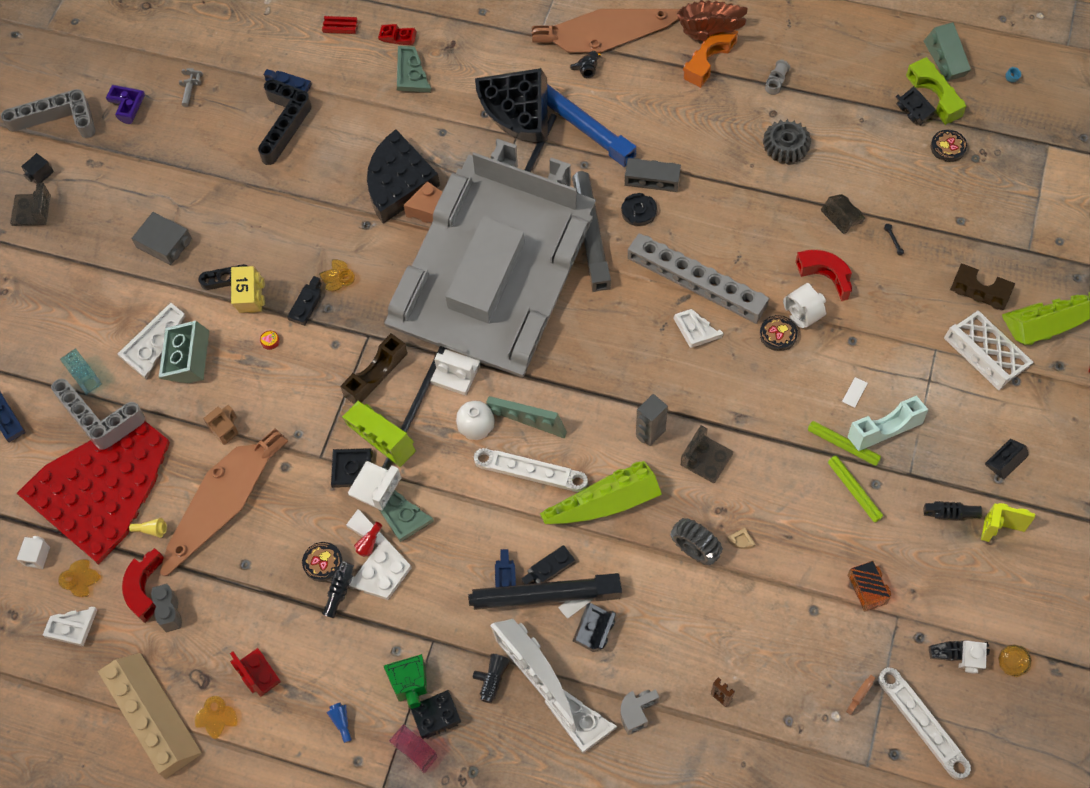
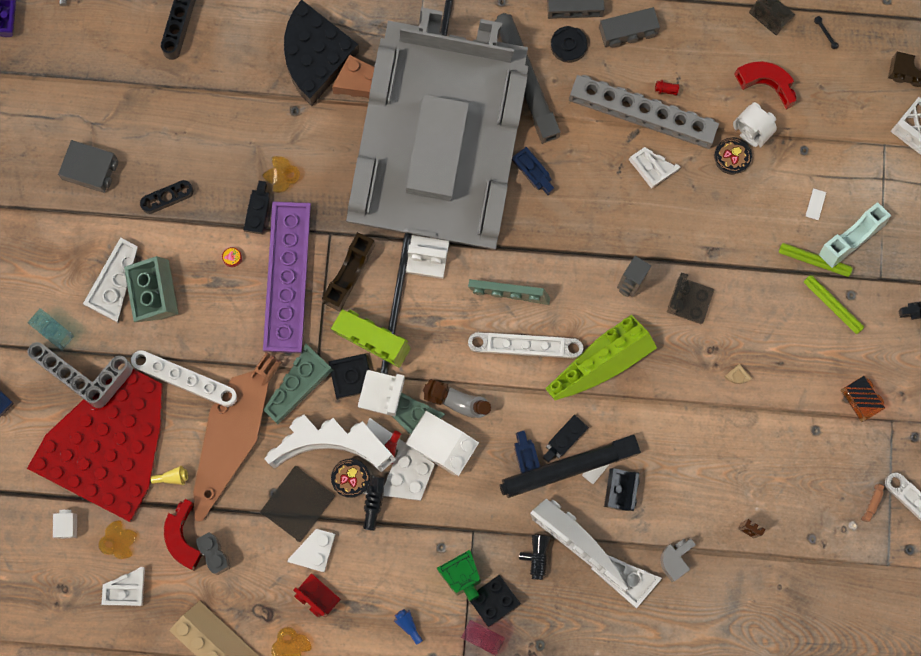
camera: 20 degrees left, 15 degrees up
(190, 439) = (184, 378): none -> white plate
(222, 423) = (211, 357): medium nougat brick -> none
(247, 289) = (197, 210): light yellow brick -> none
(265, 578) = (297, 504): none -> clear smoke piece
(267, 627) = (314, 551): none -> white wing
(305, 459) = (302, 379): none -> sand green wing
(313, 516) = (330, 436): none -> white arch
(315, 367) = (287, 277): none -> medium lavender plate
(421, 545) = (442, 443): none -> white slope
(453, 512) = (458, 401): none -> piece
(475, 420) = (459, 304): white cylinder -> none
(577, 312) = (533, 170): none -> dark blue hinge
(696, 541) = (699, 389): dark grey gear -> none
(700, 202) = (629, 27): none -> dark grey brick
(725, 261) = (667, 88): none -> red pin

